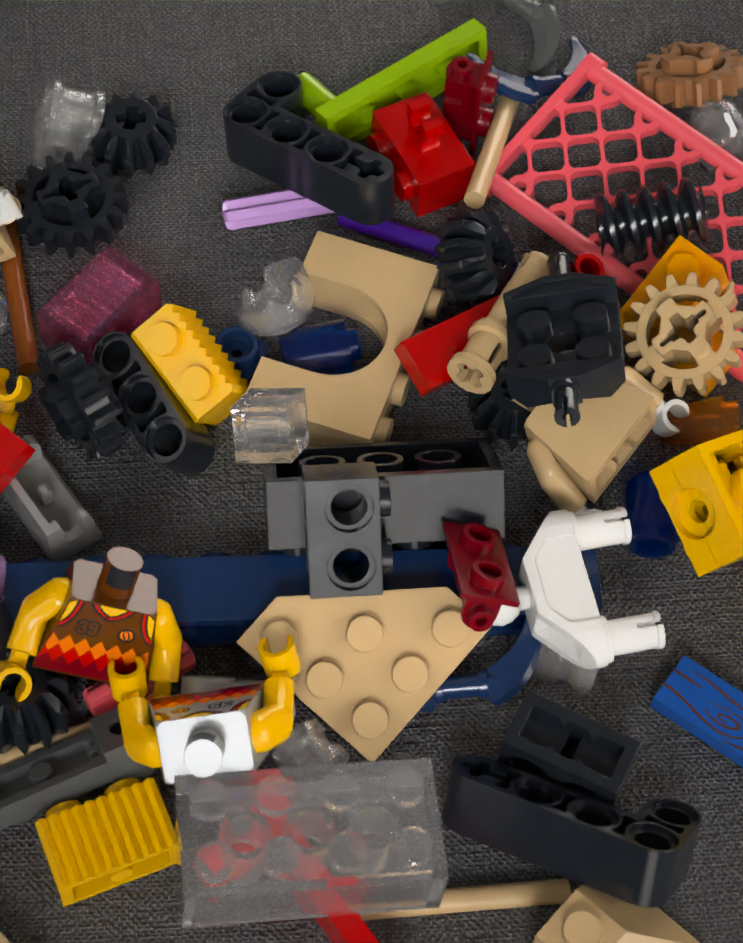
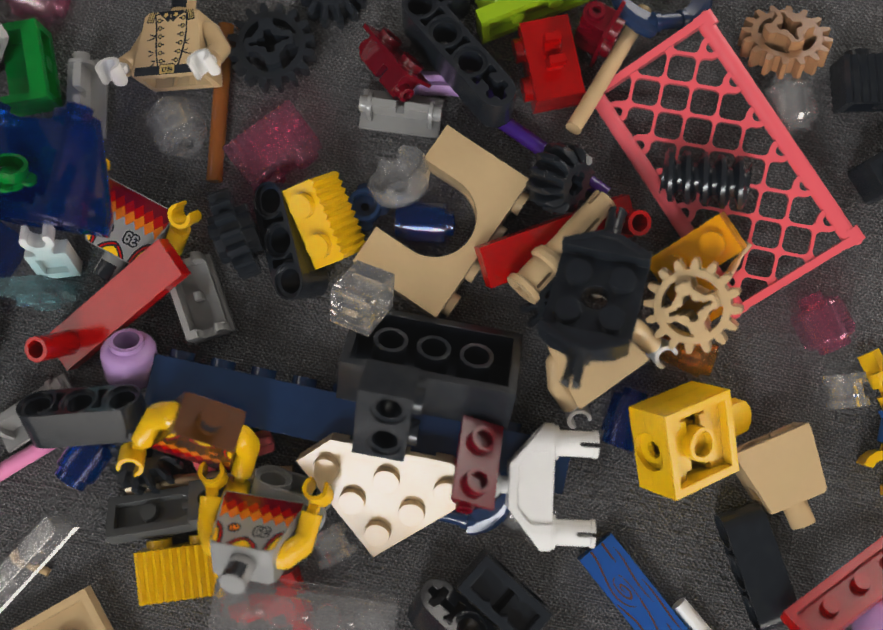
camera: 20 degrees right, 25 degrees up
(243, 189) = (383, 52): none -> dark red hinge
(245, 245) = (416, 117): none -> light grey hinge

